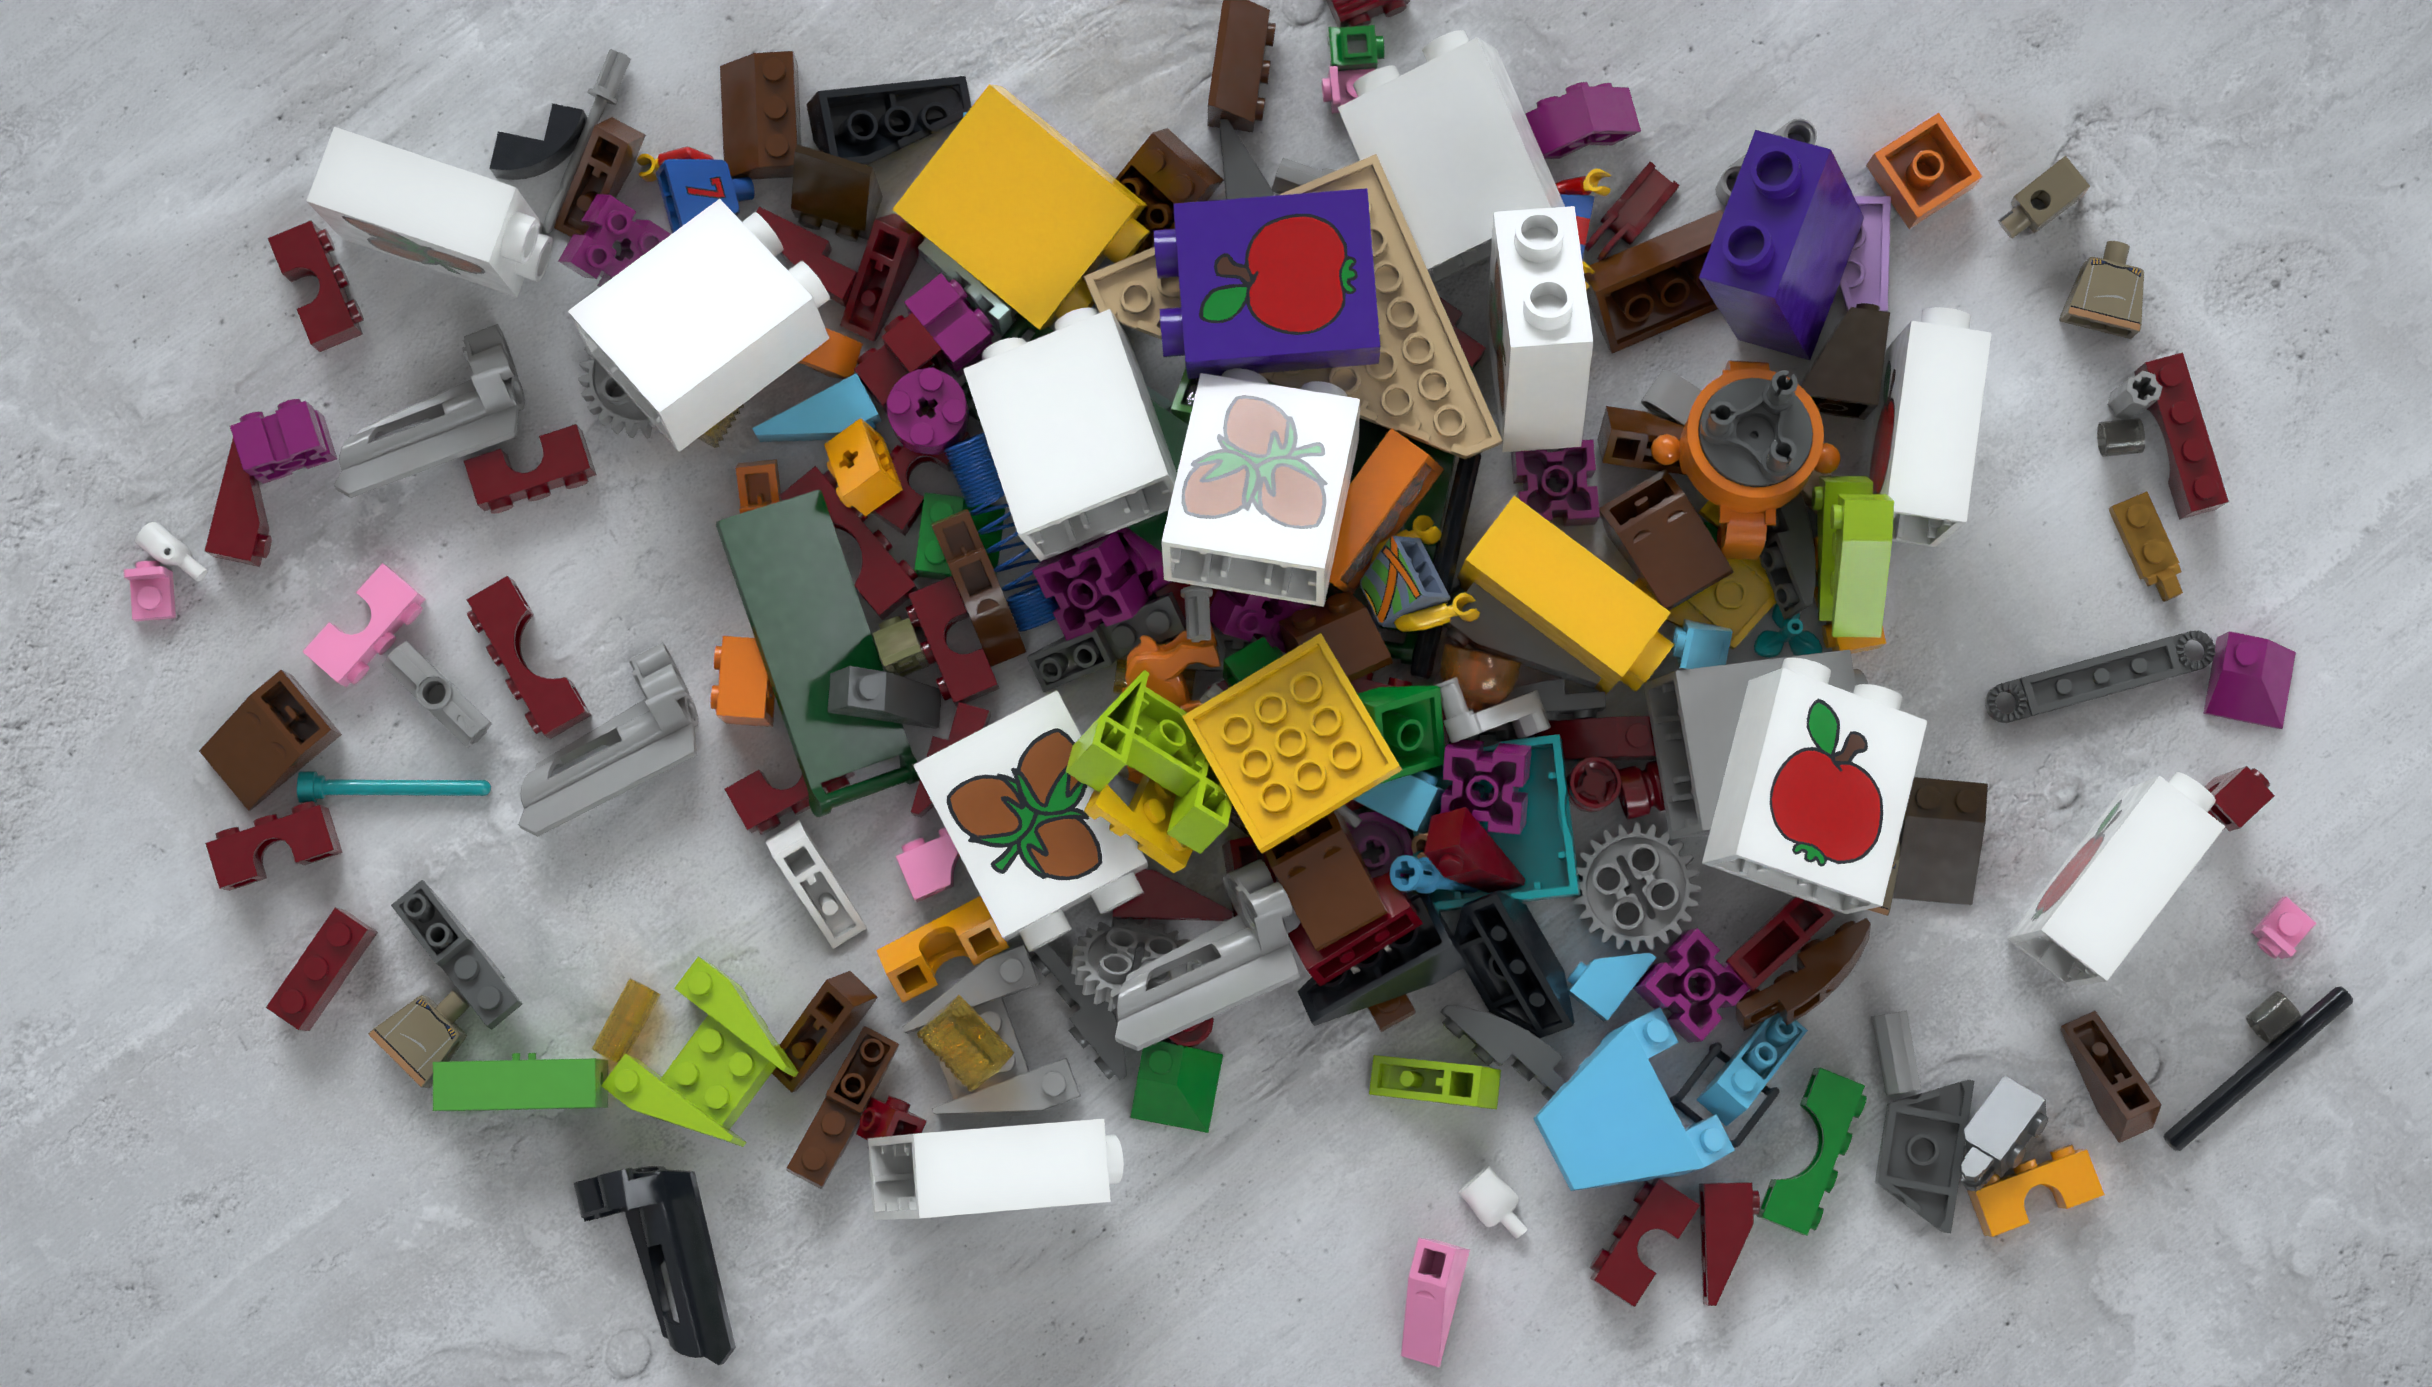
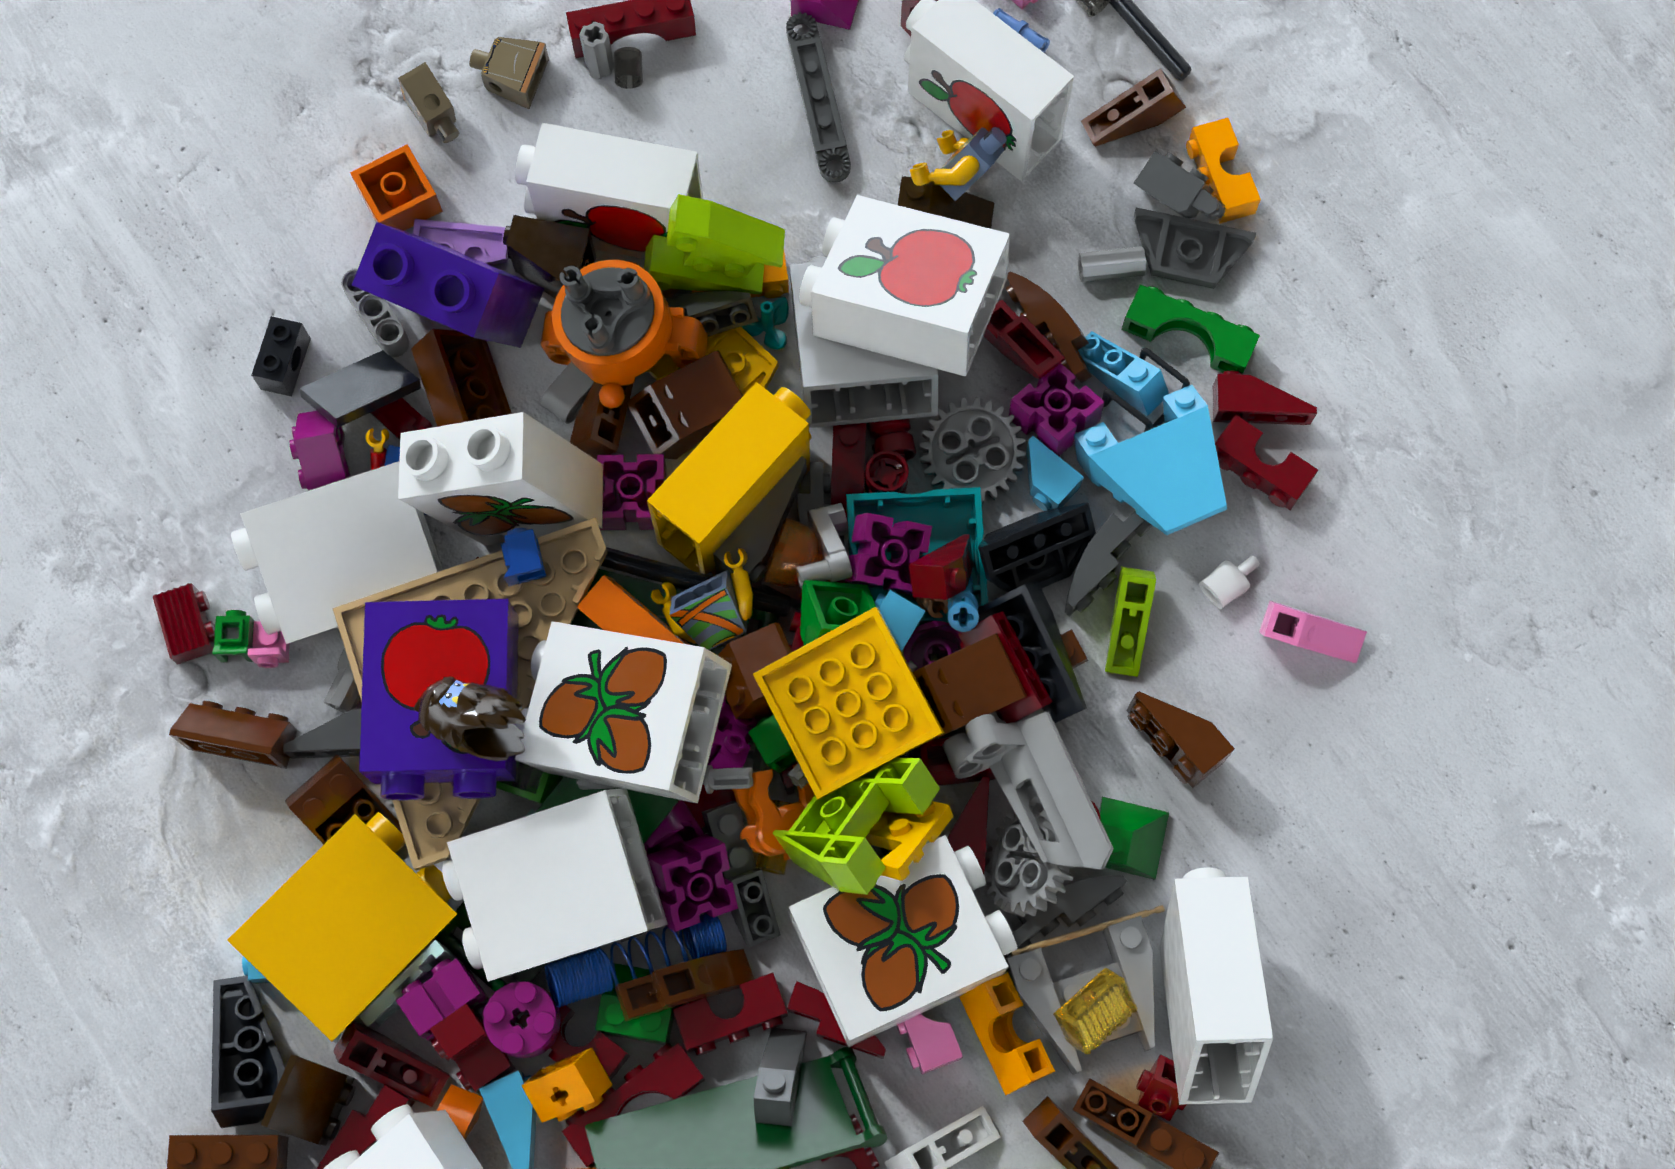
camera: 85 degrees left, 10 degrees down
(899, 647) = (732, 1059): olive slope -> none
(1062, 1034) = (1082, 932): none -> tan piece
(1231, 318) = (473, 718): none -> dark brown head
(1287, 1149) = (1185, 739): none -> reddish brown slope
(1446, 361) = (522, 557): none -> blue window
(1662, 156) = (360, 388): none -> tile
(1701, 59) = (281, 356): none -> black brick
(1701, 644) = (779, 373): medium azure slope -> none
(2006, 861) = (966, 165): none -> torso
(2148, 544) = (715, 56): pearl gold hinge -> none
(2212, 927) = (1023, 29): none -> medium blue pin

